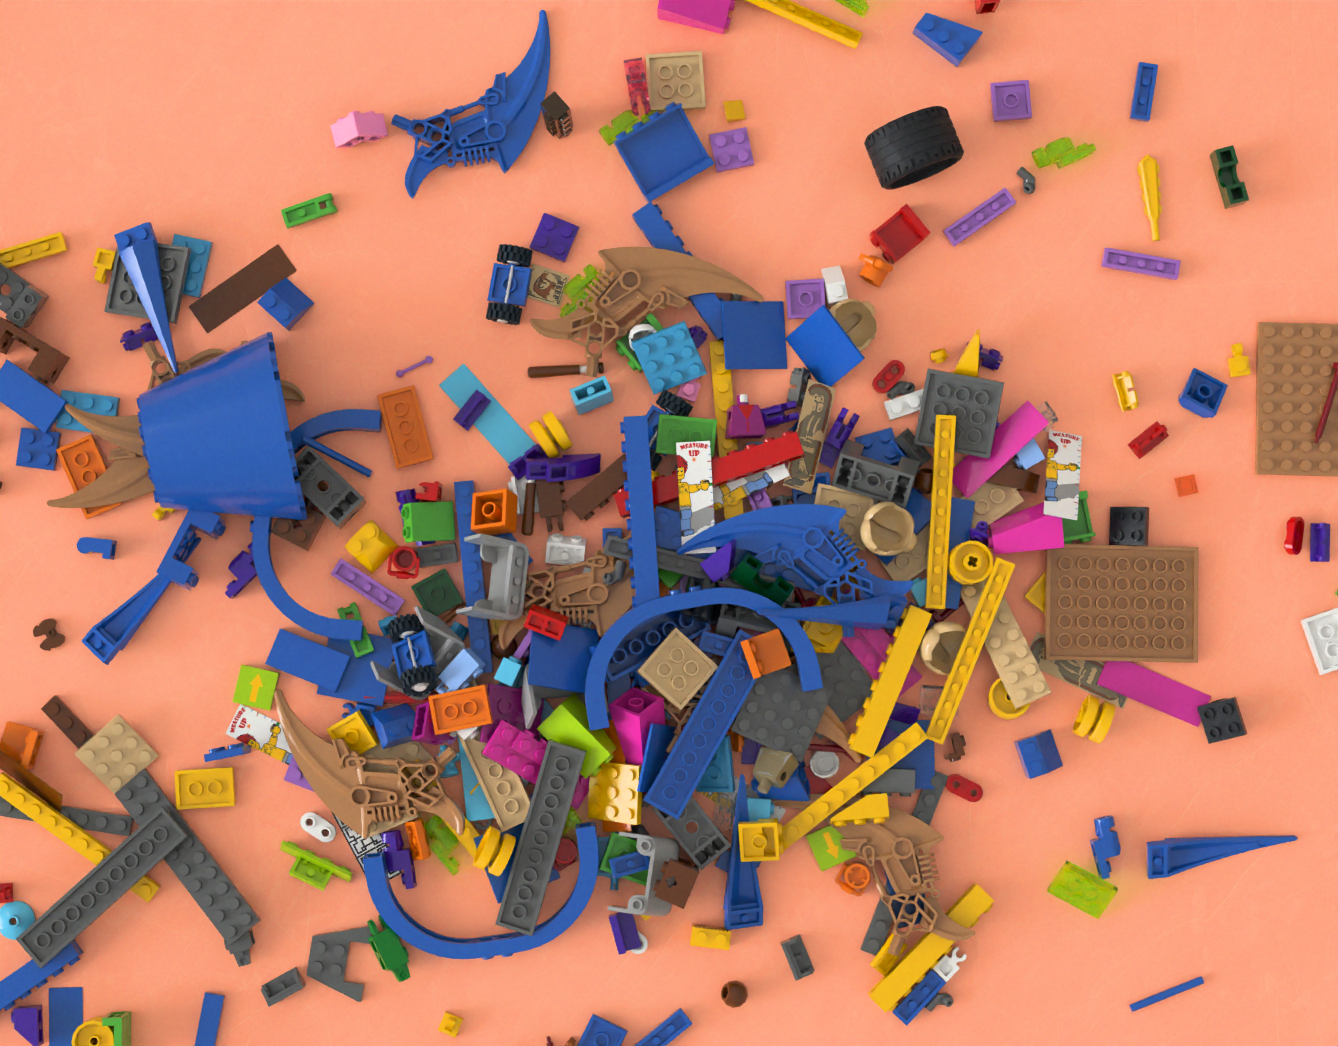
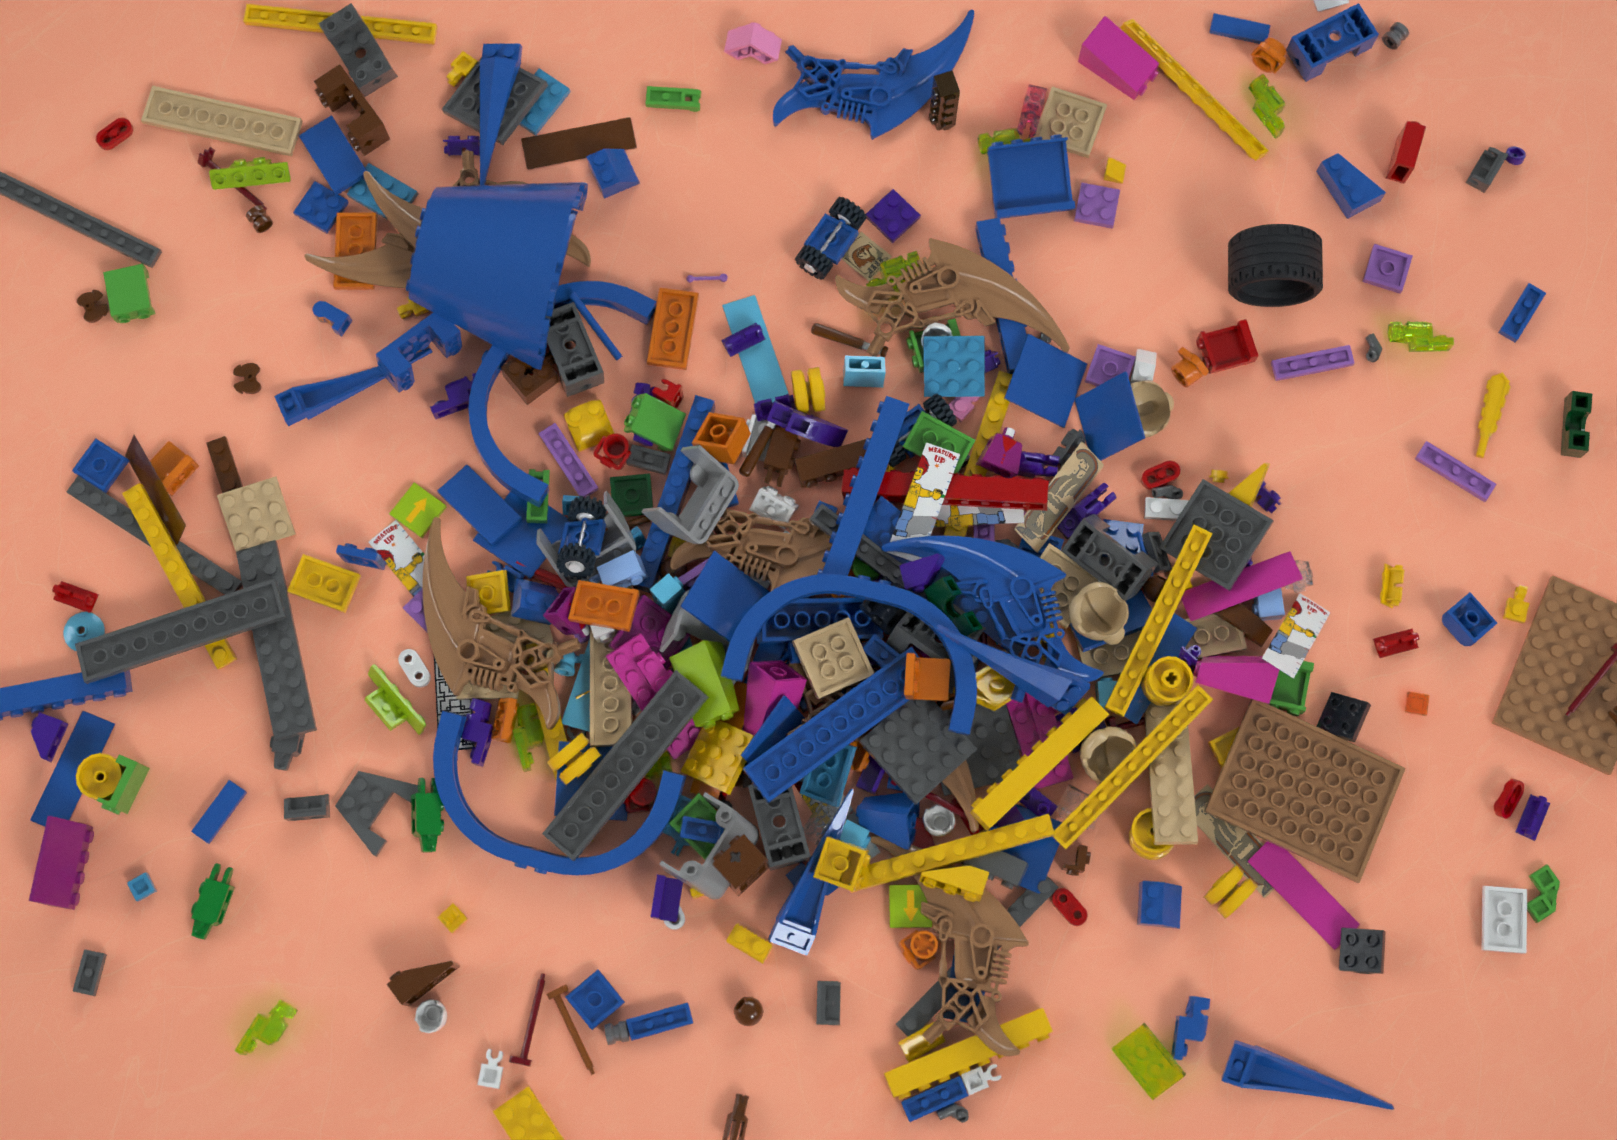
camera: 25 degrees right, 10 degrees down
(546, 622) = (724, 558): red hinge -> none
(616, 575) = (812, 546): dark grey arm -> none
(773, 768) = (886, 797): dark tan torso -> none

